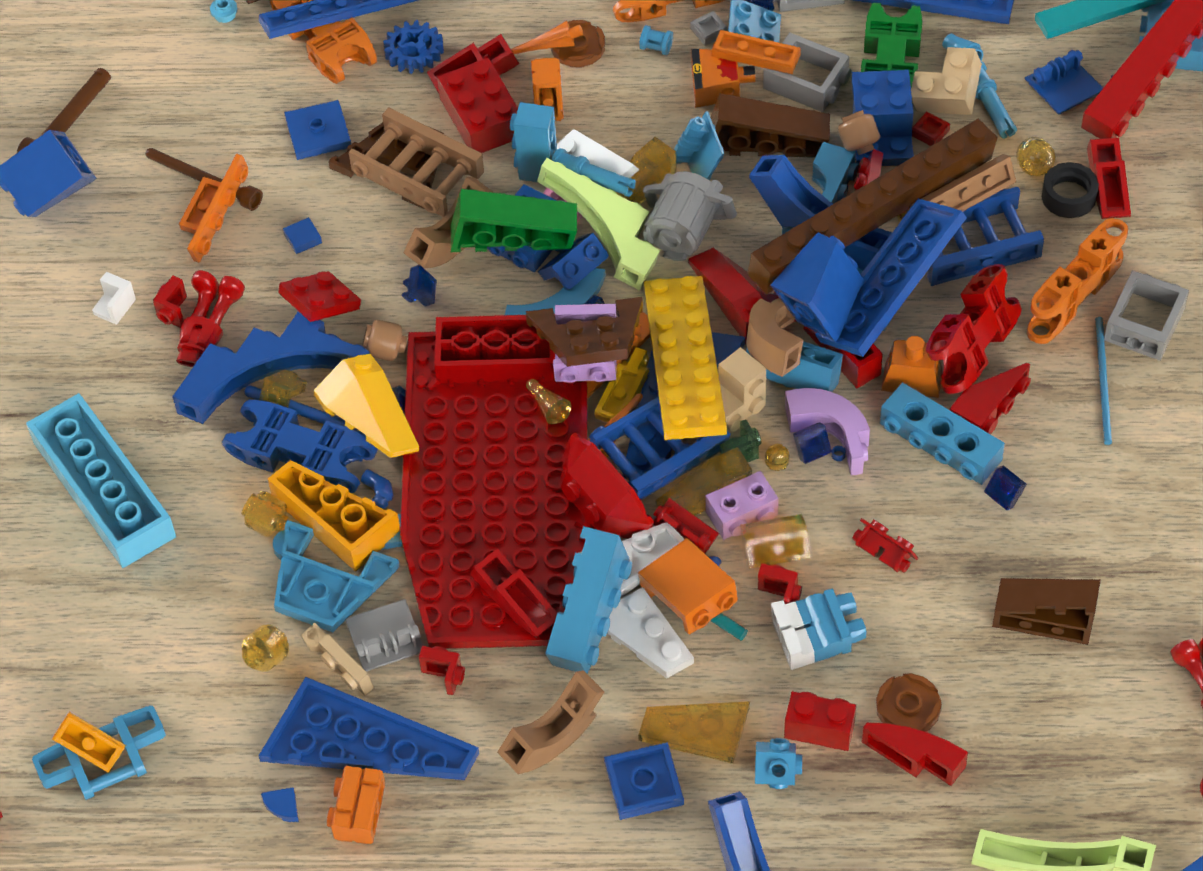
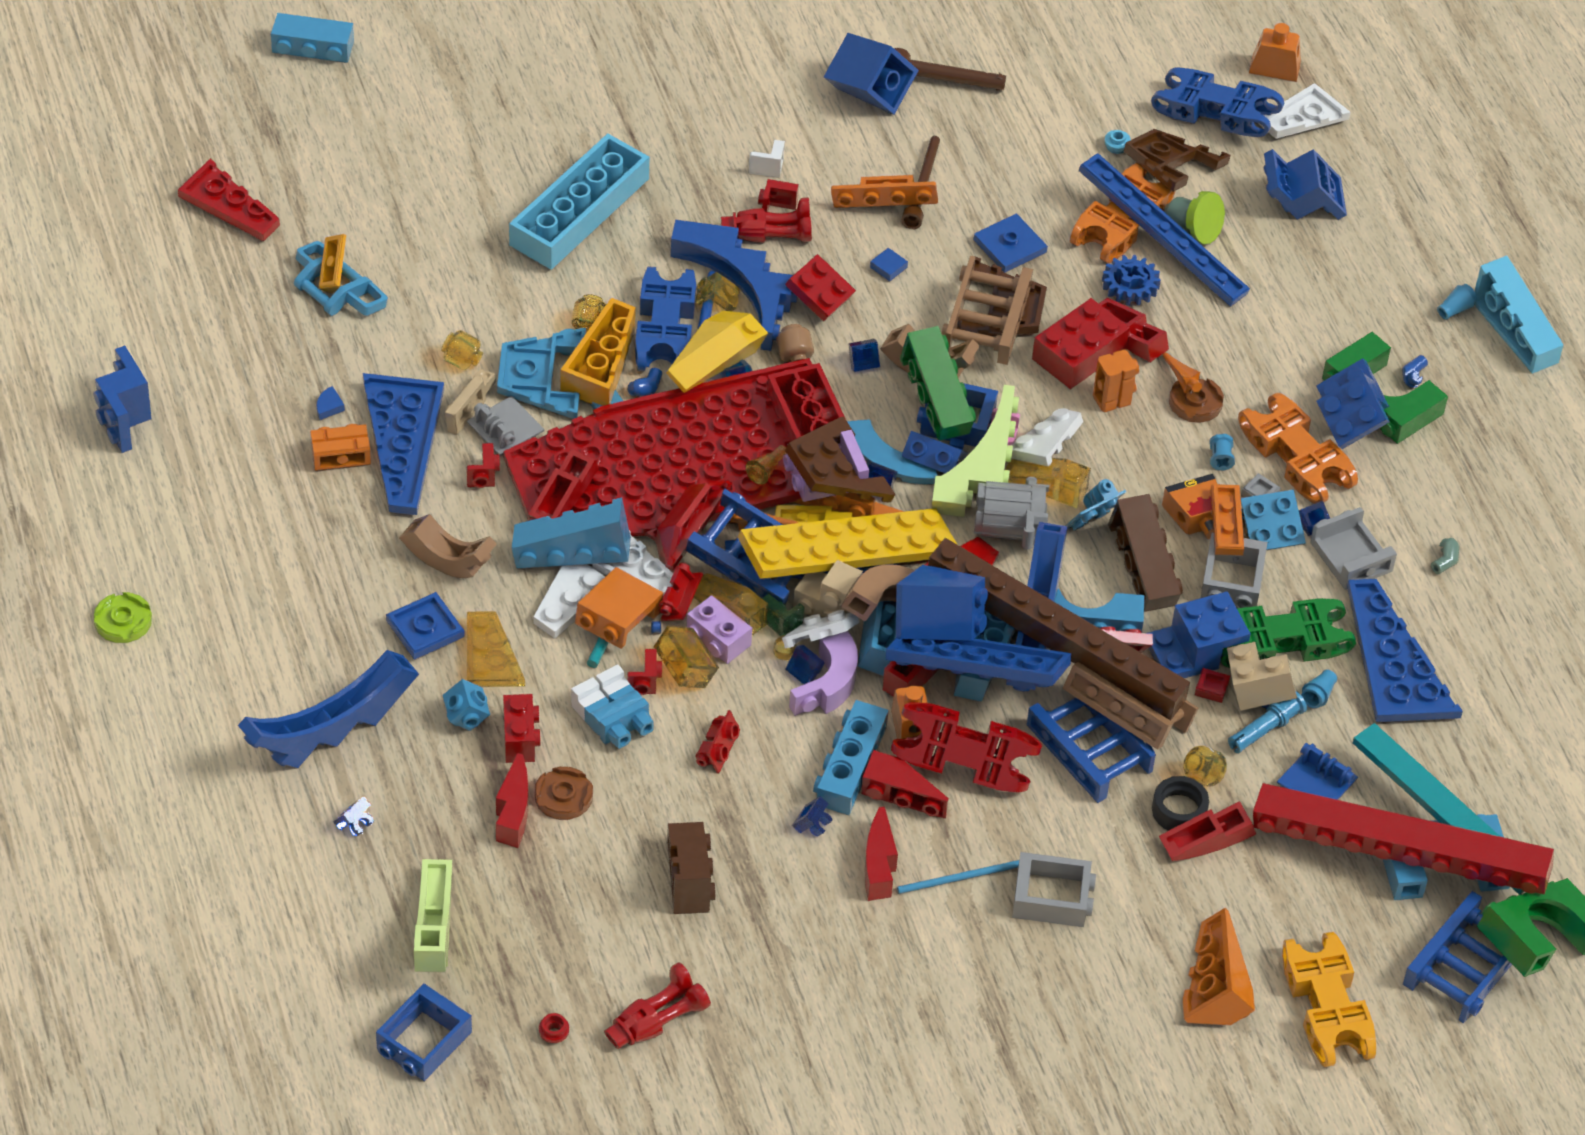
camera: 65 degrees right, 5 degrees down
(532, 138) = (1039, 381): dark azure brick -> none
(598, 175) = (1027, 423): dark azure pin -> none
(779, 411) = (818, 628): none -> white wing
(859, 132) = (1156, 612): medium nougat head -> none
(1070, 286) = (1061, 820): orange piece -> none
(1070, 443) = (880, 858): none -> red slope

